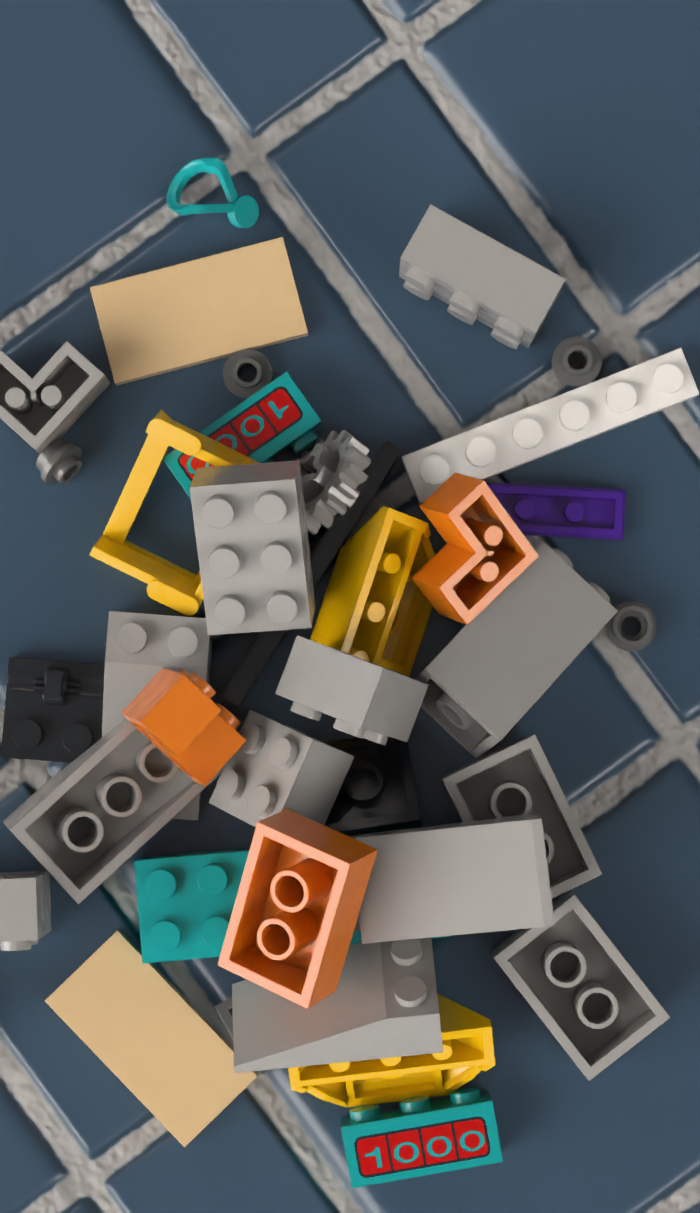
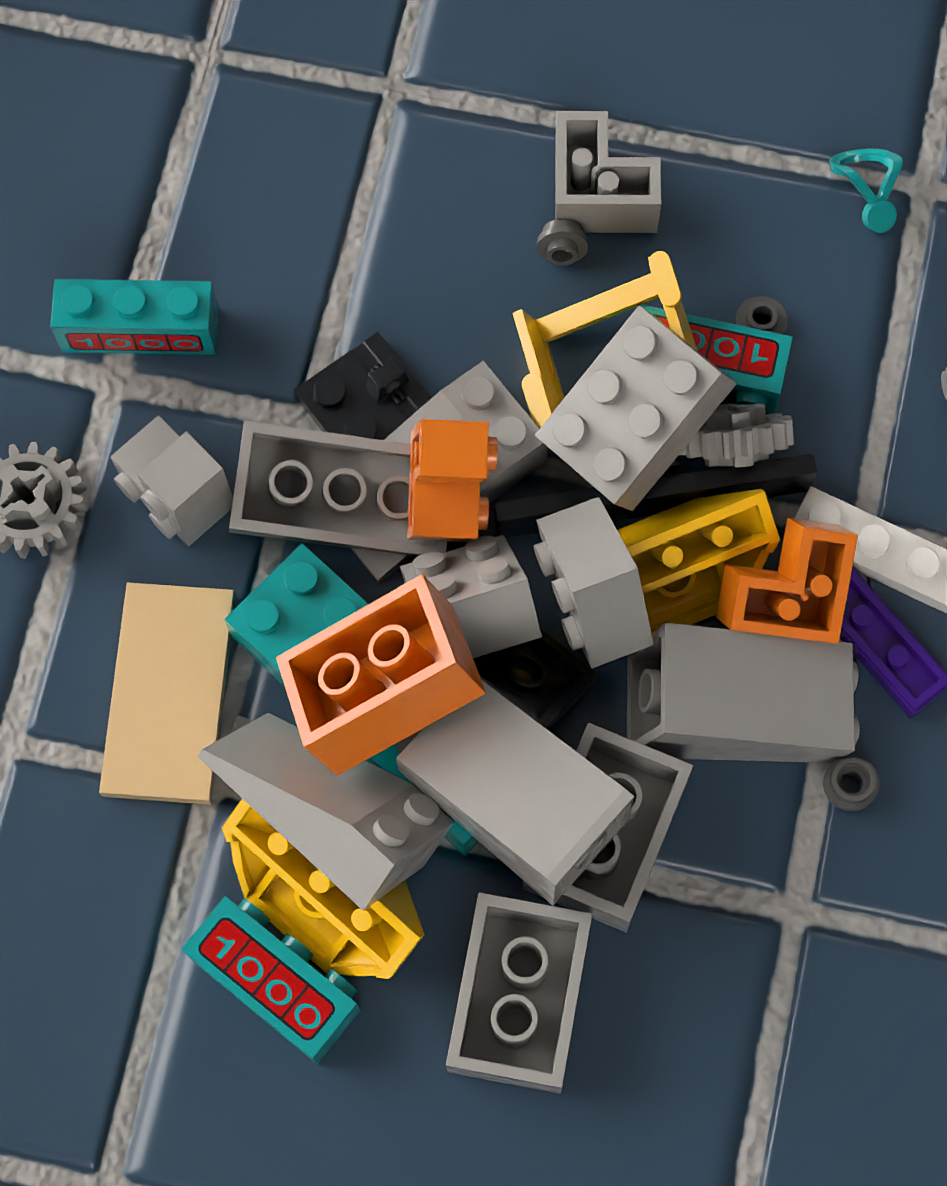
camera: 45 degrees right, 15 degrees down
(199, 311) = (774, 248): tan tile -> none

